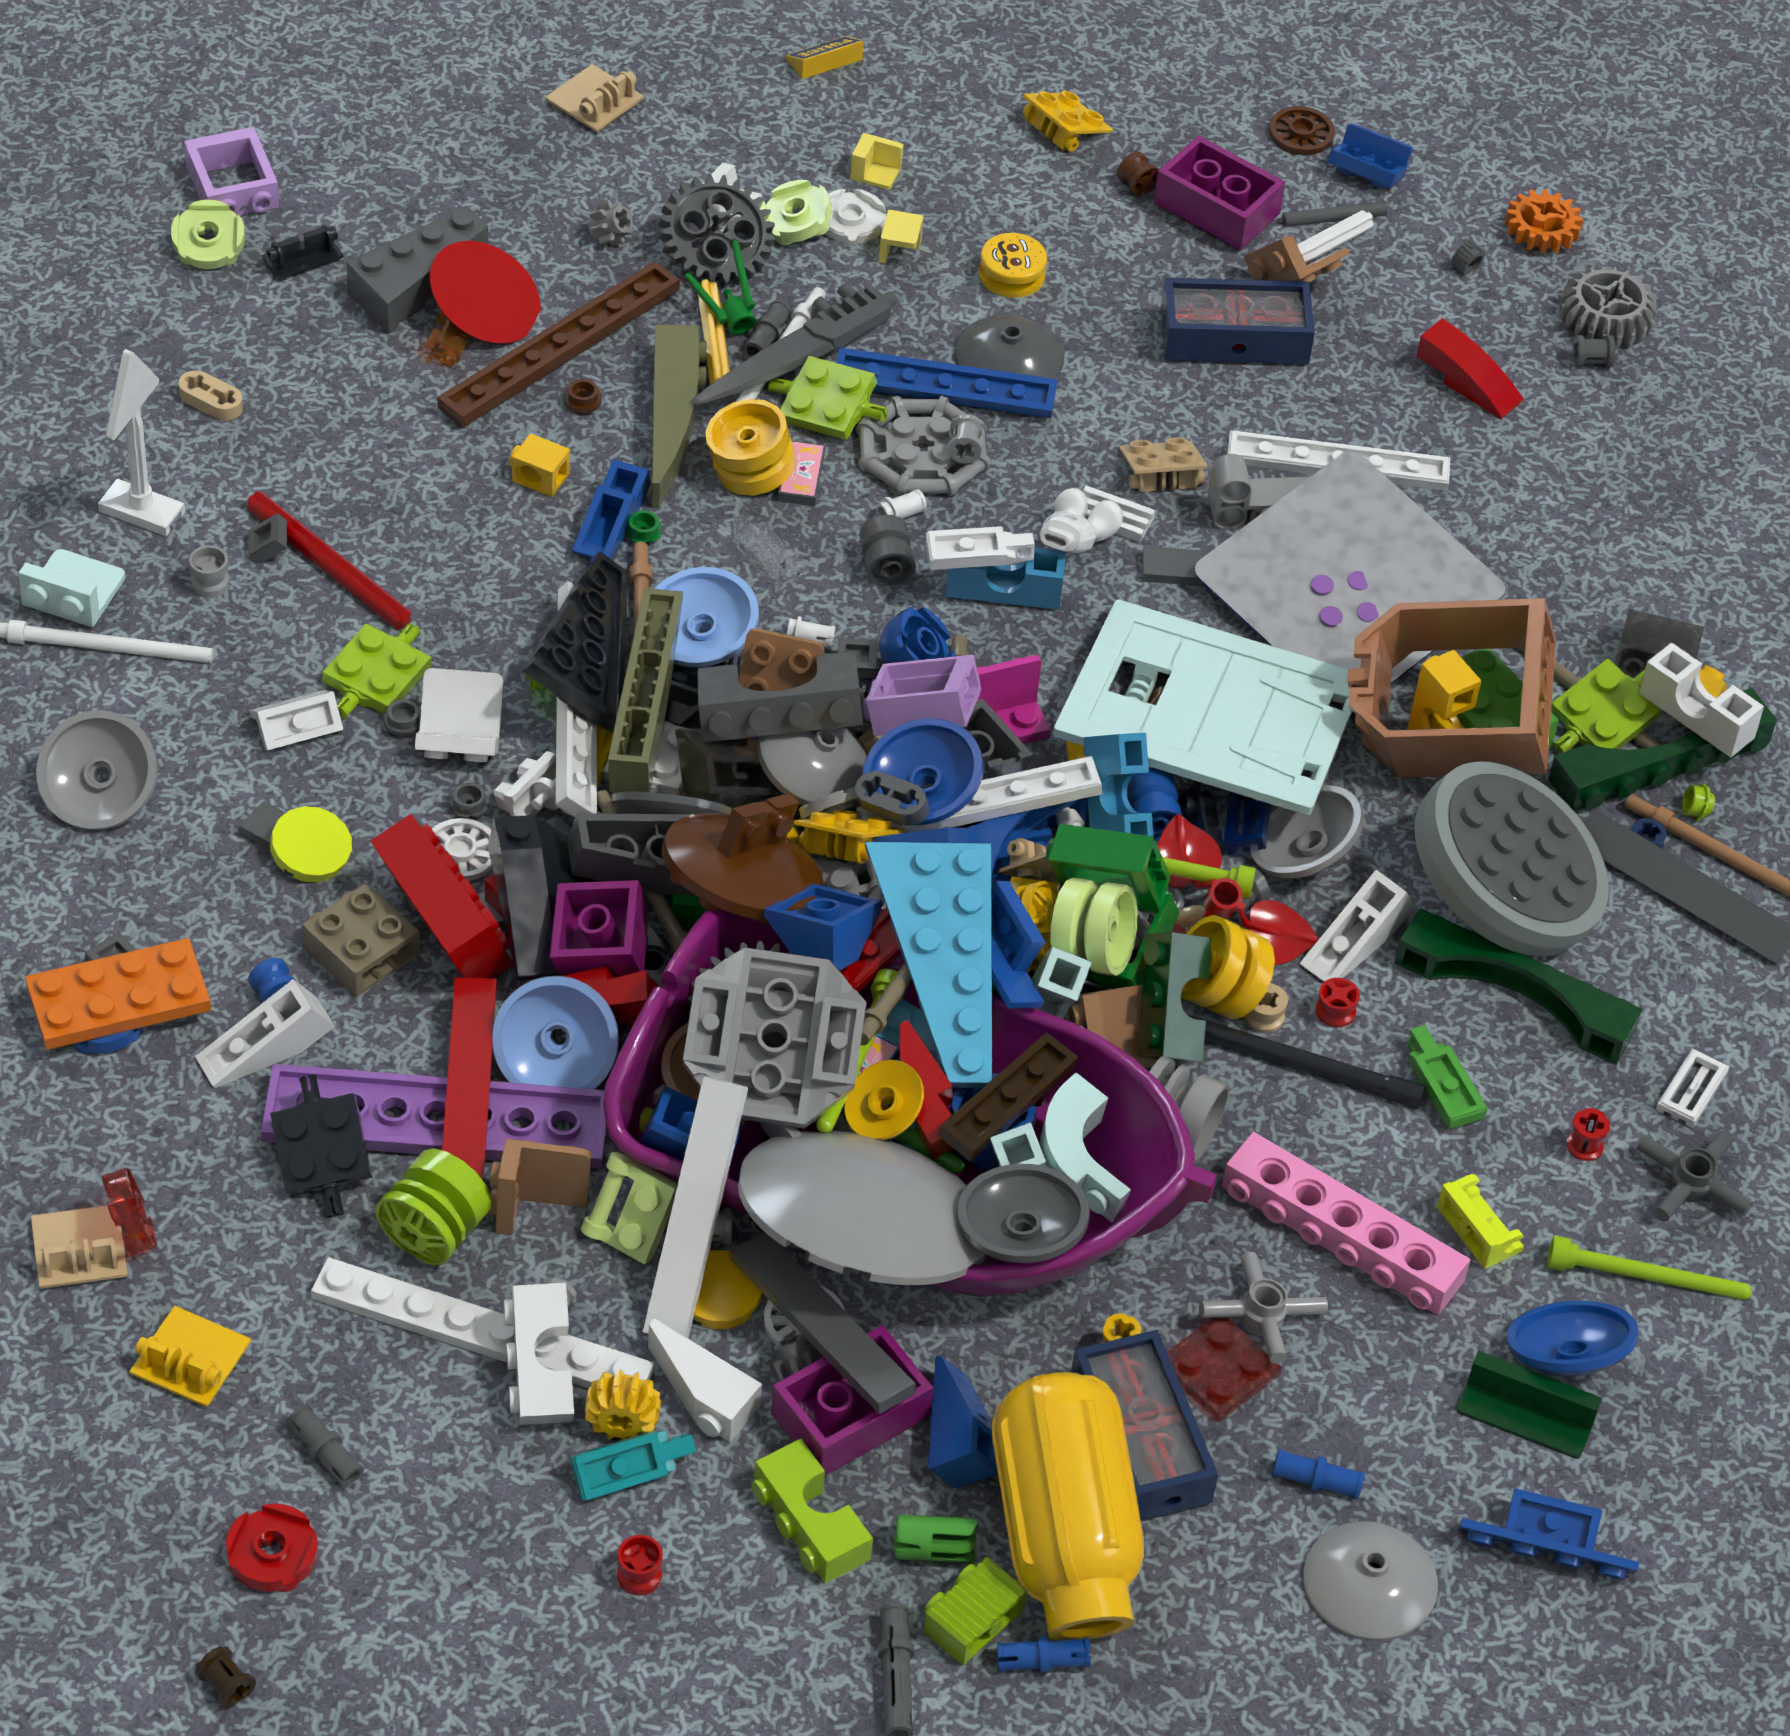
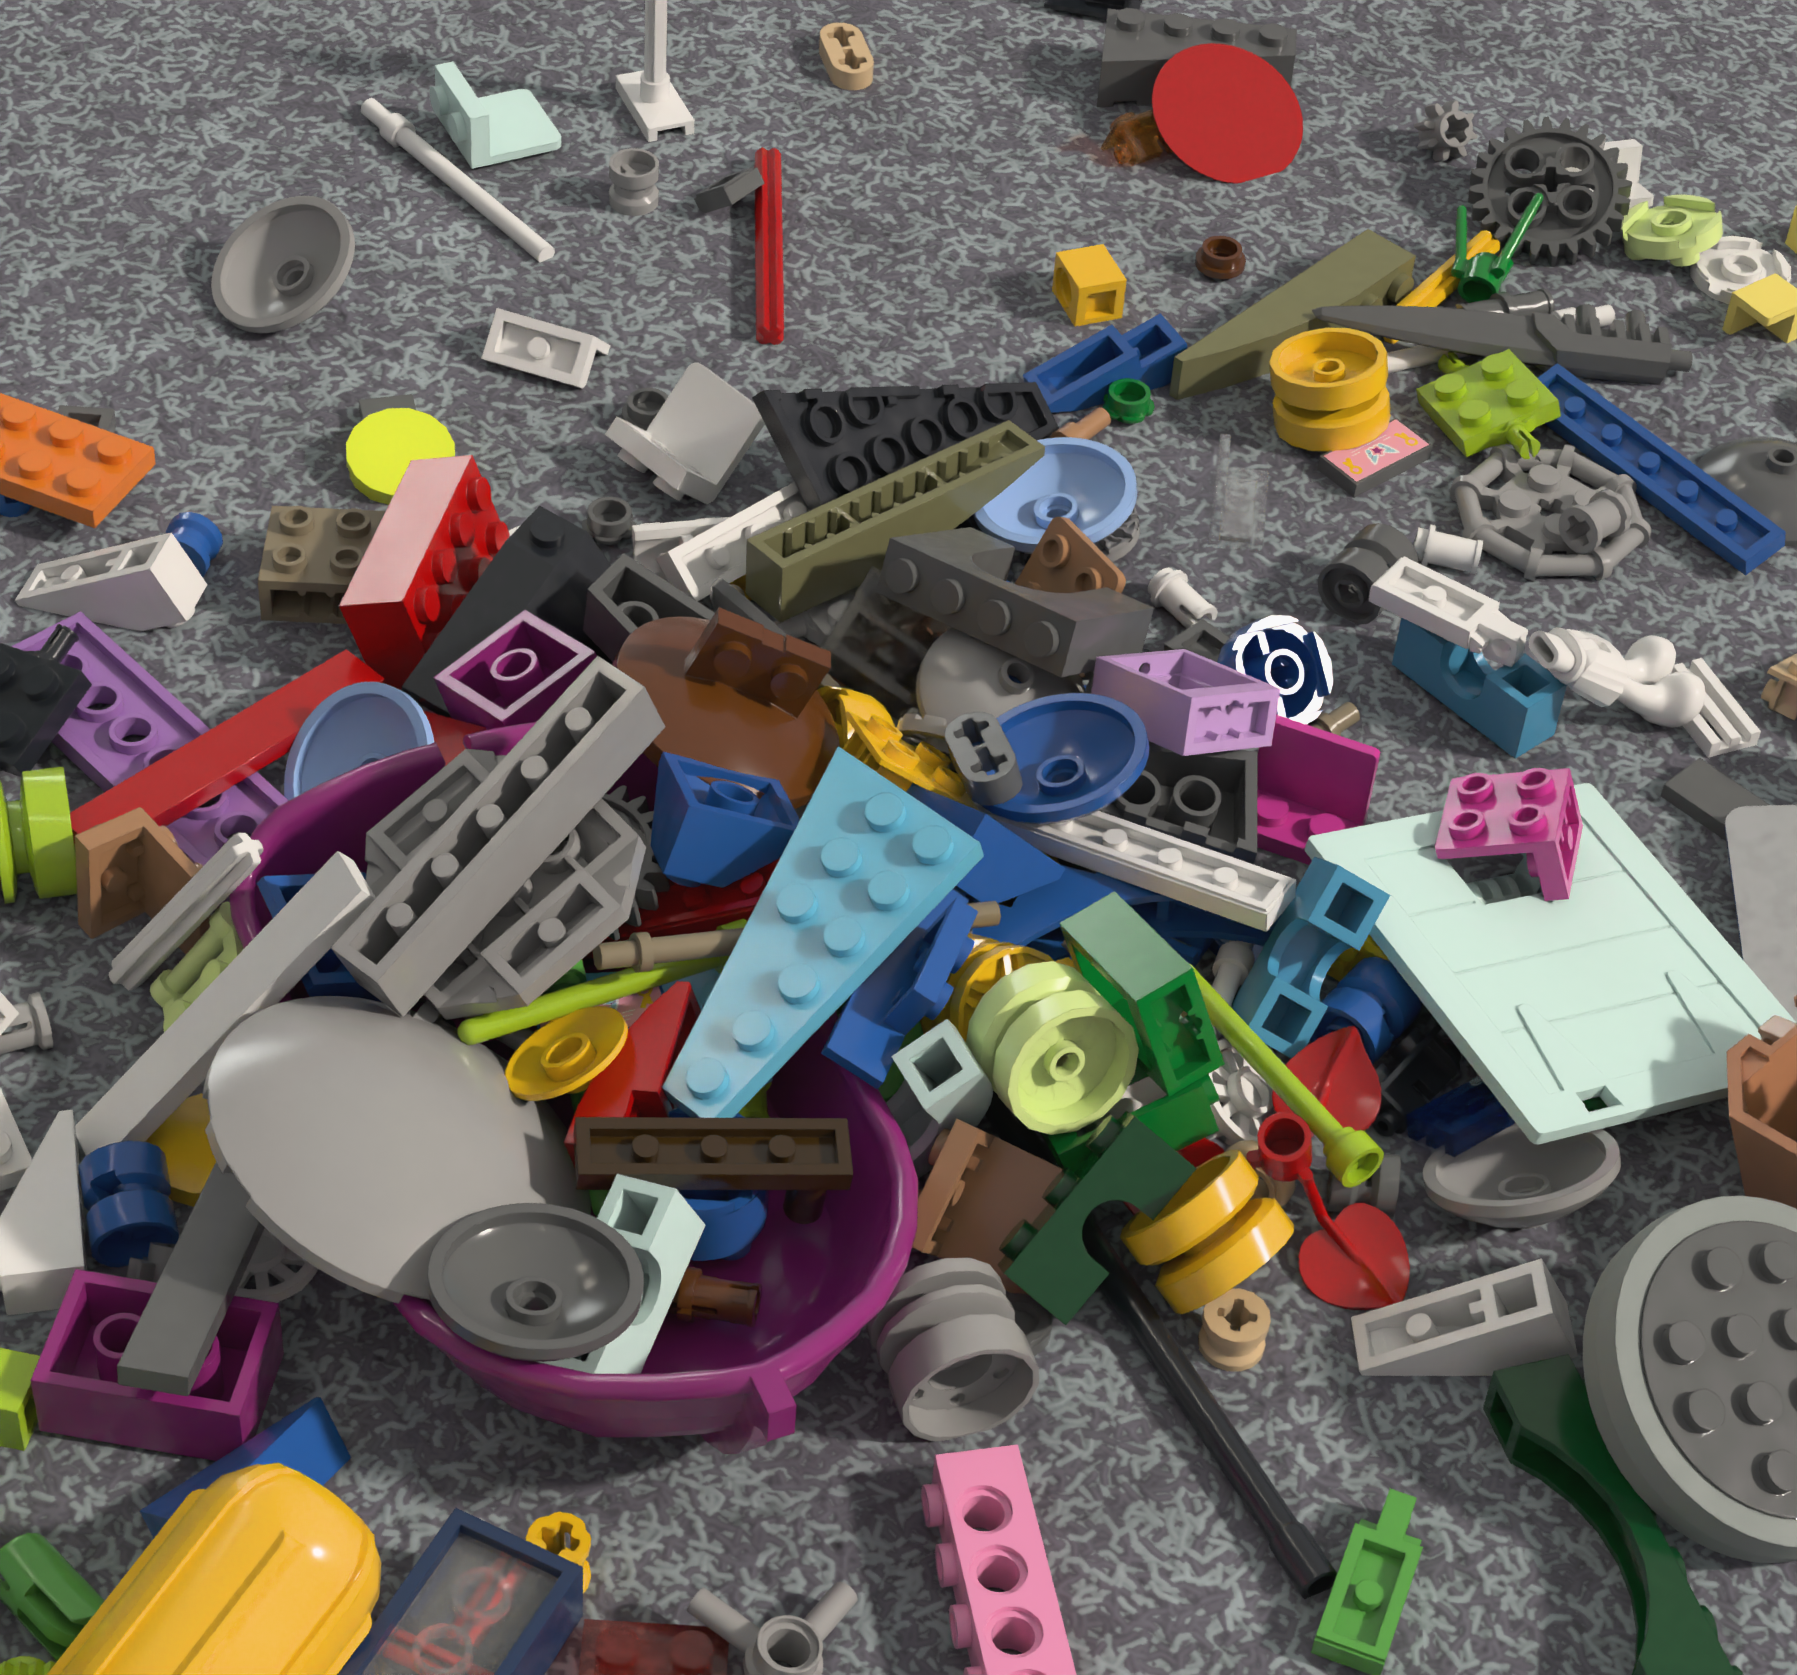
camera: 45 degrees right, 5 degrees down
(376, 669) = (664, 347): lime plate -> none
(558, 344) = (1256, 201): reddish brown plate -> none
(593, 1176) = (186, 911): none -> white axle
(596, 96) = (1580, 32): tan hinge -> none
(748, 1347) = (127, 1201): none -> blue wheel
(774, 1009) = (499, 836): none -> light grey brick
(1069, 1118) = (744, 1250): light aqua arch -> none
(1127, 649) = (1514, 815): none -> dark pink bracket
(1337, 992) = (1352, 1388): red wheel -> none

